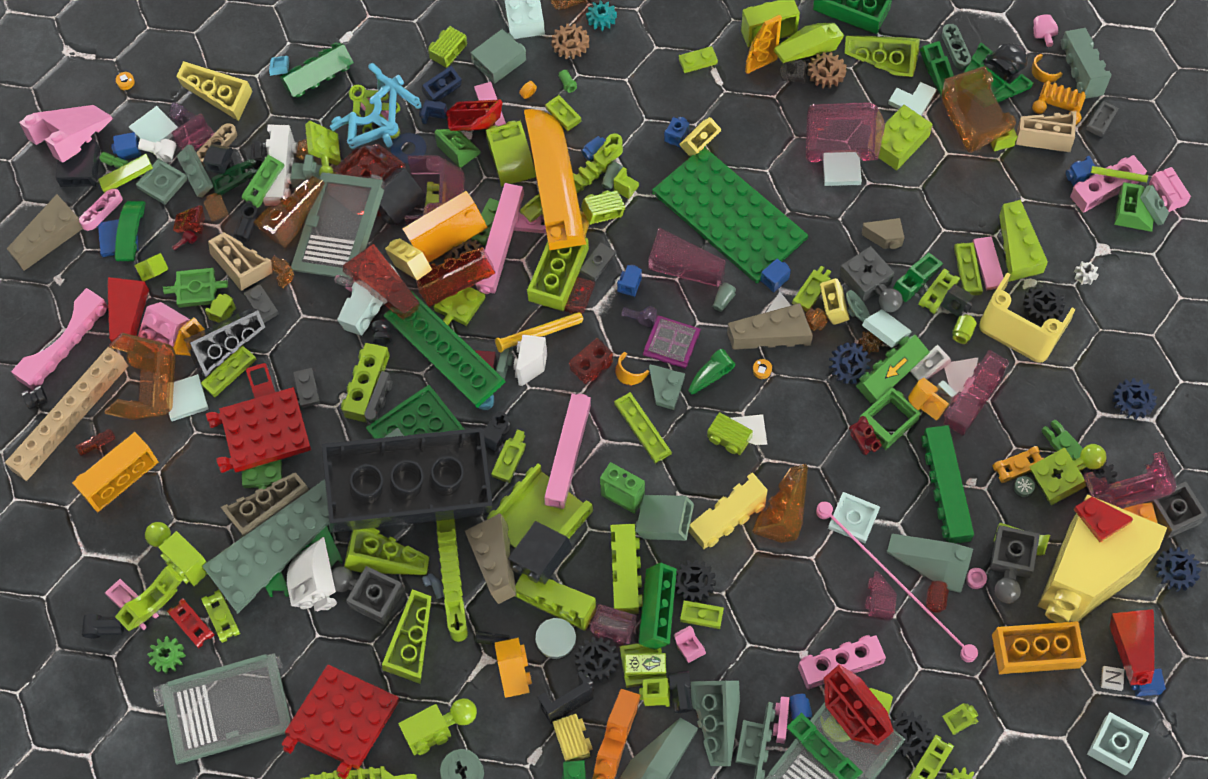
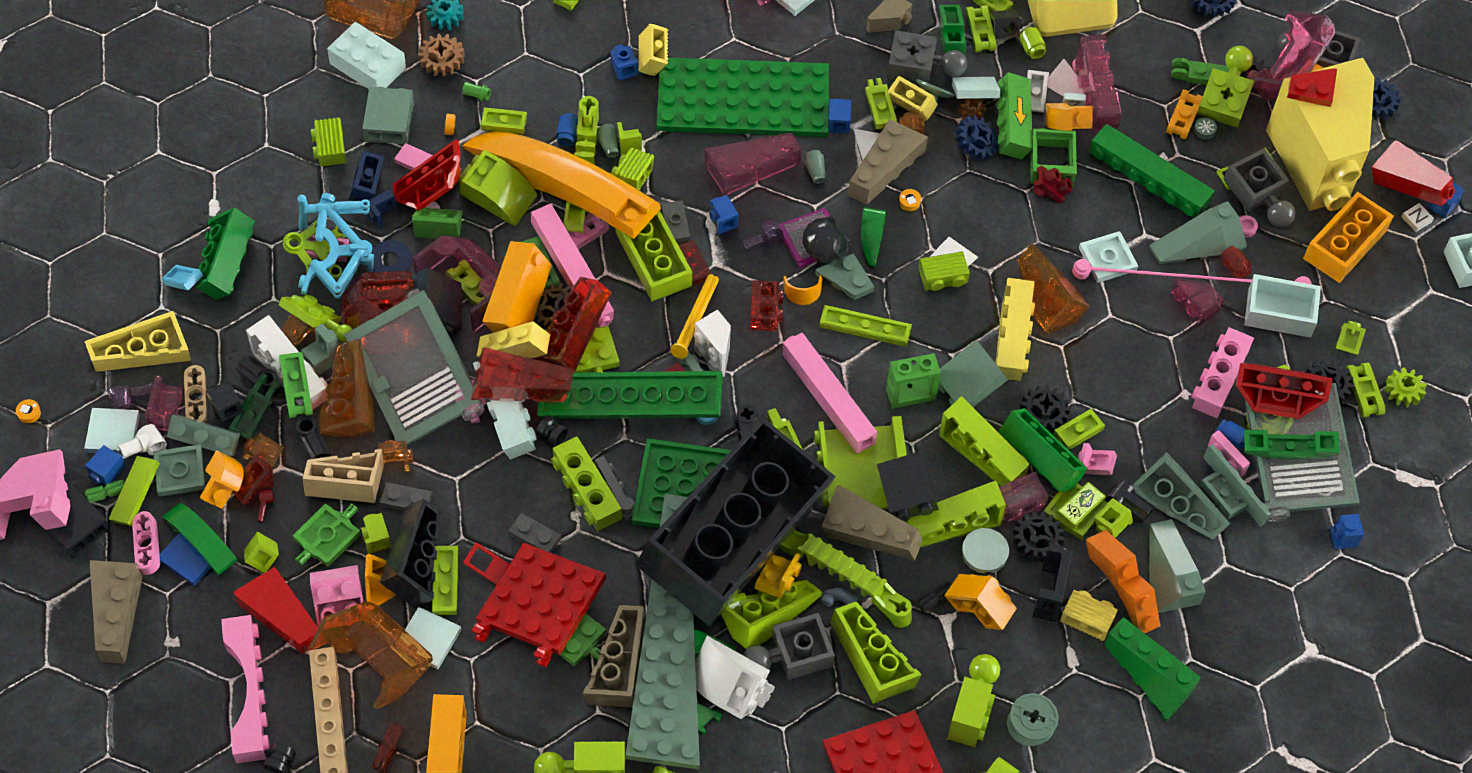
camera: 50 degrees left, 5 degrees down
(175, 205) = (225, 477): none -> light orange brick
(411, 538) = (778, 575): none -> yellow bracket
(669, 350) = (825, 241): none -> black helmet
(933, 653) = (1282, 305): none -> light aqua piece

